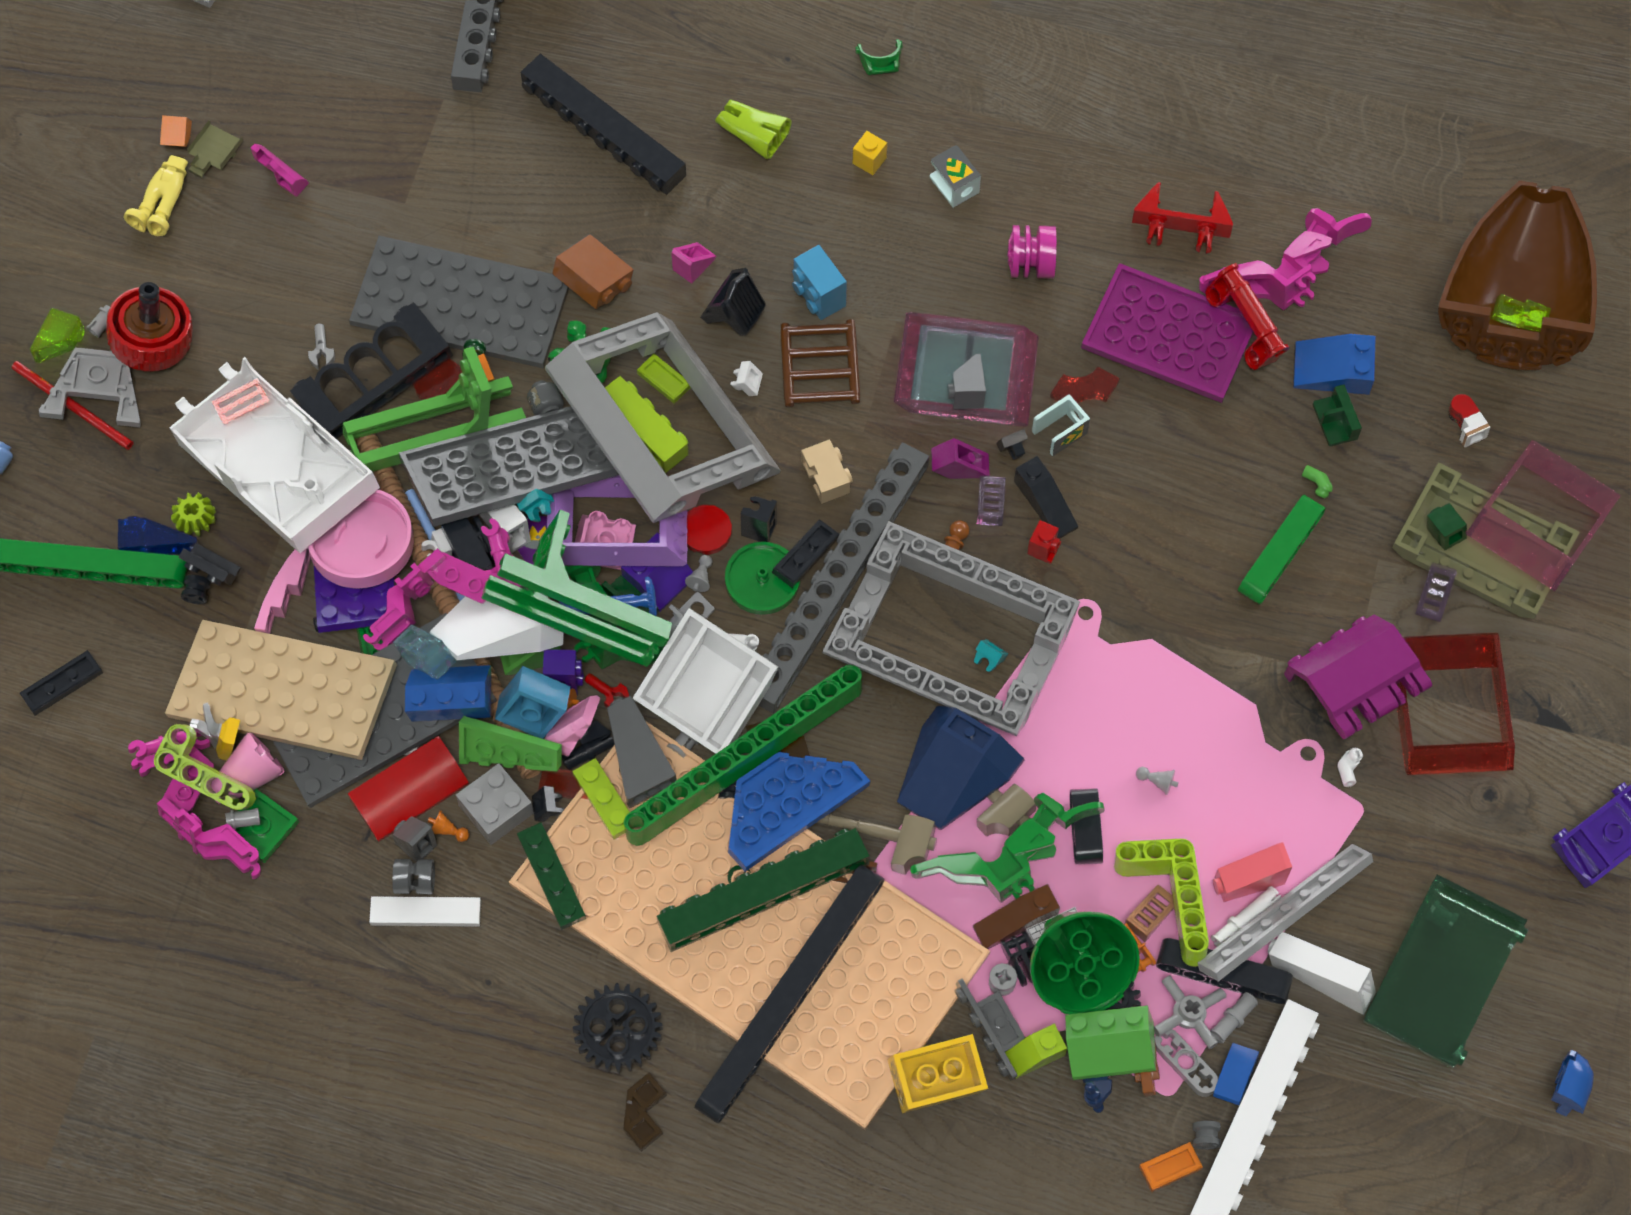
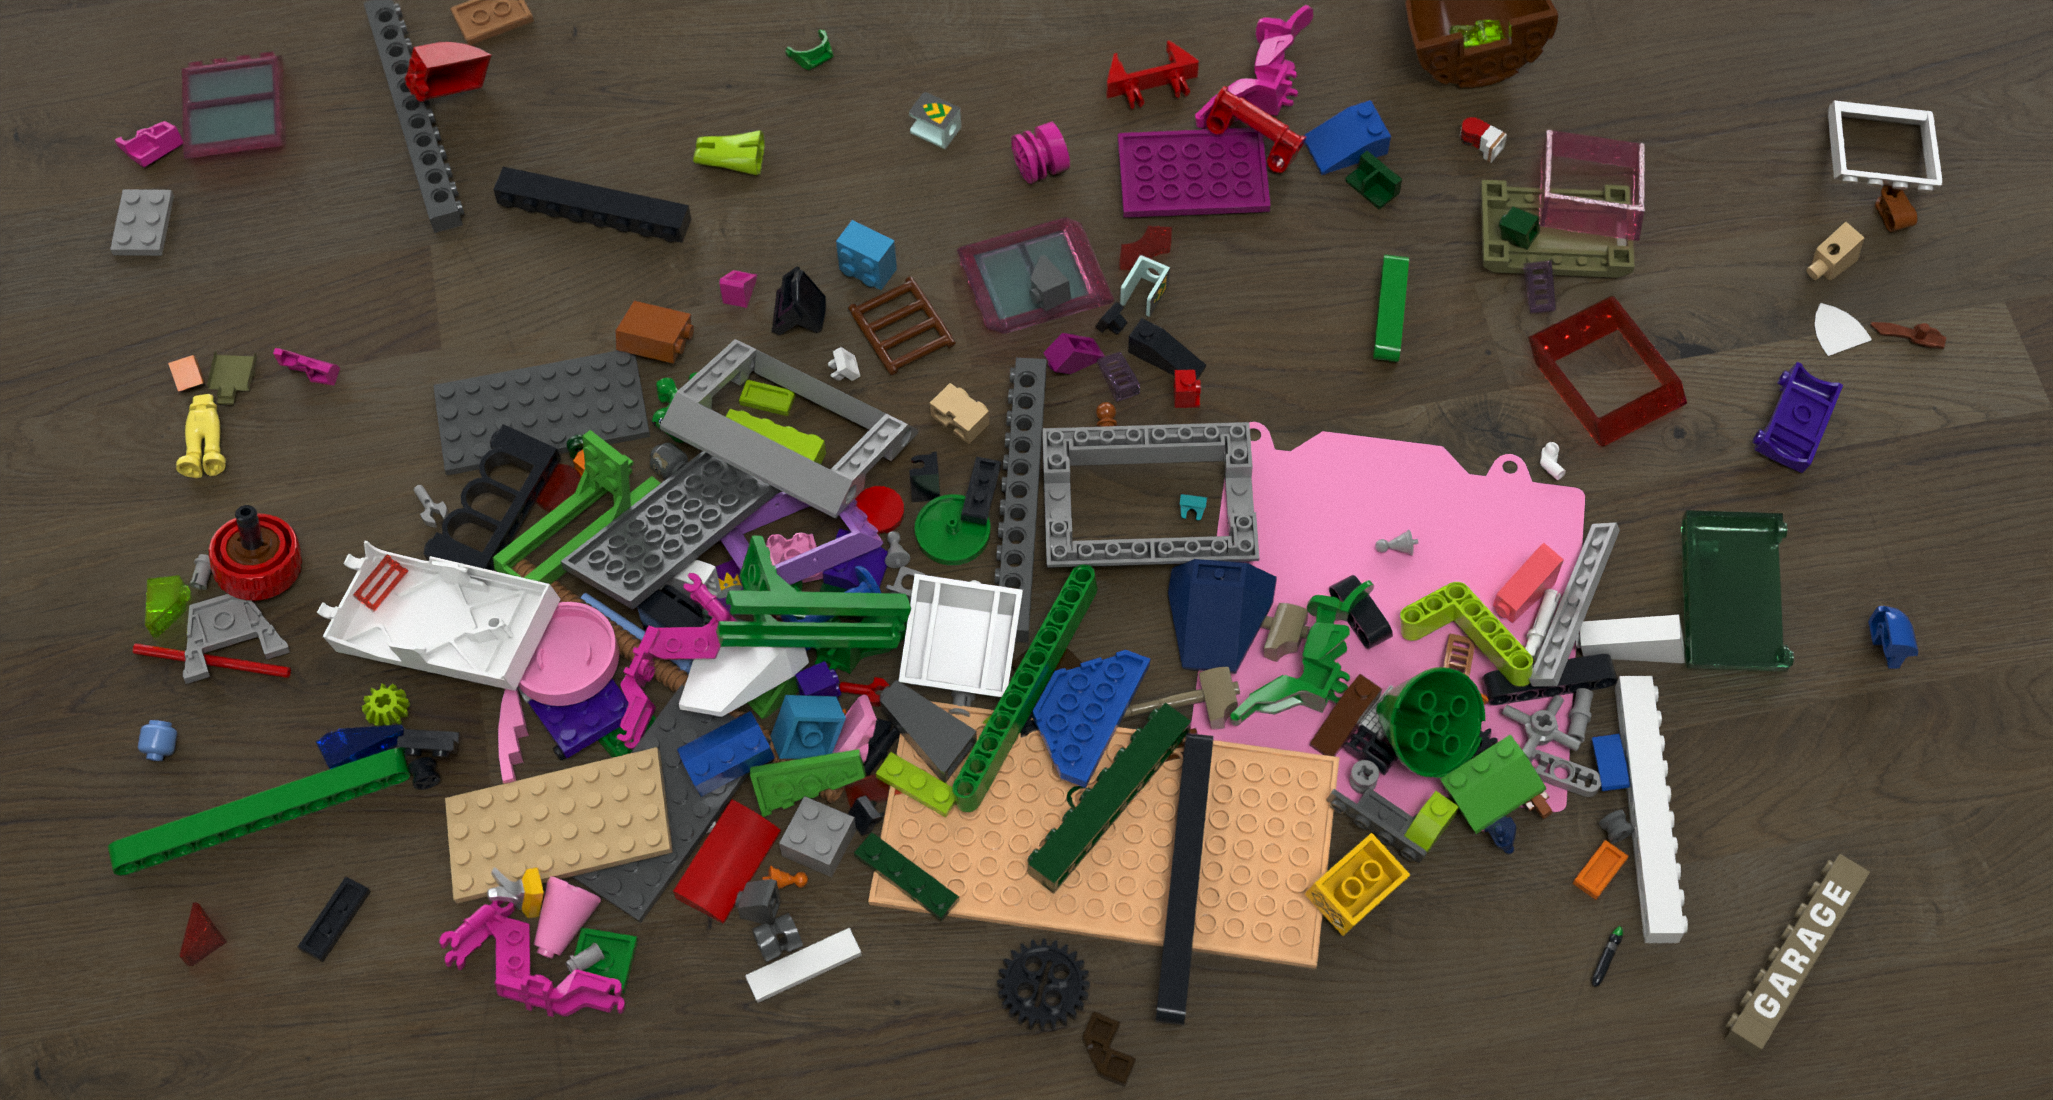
camera: 25 degrees left, 5 degrees down
(206, 774) = (530, 932): lime beam -> none
(424, 652) = (684, 724): clear light blue brick -> none
(438, 541) = (638, 627): white tile -> none
(536, 502) = (714, 548): teal tile -> none
(869, 153) = (848, 131): yellow brick -> none
(1320, 479) = (1388, 237): bright green arm -> none
(1360, 672) = (1521, 375): magenta hinge -> none

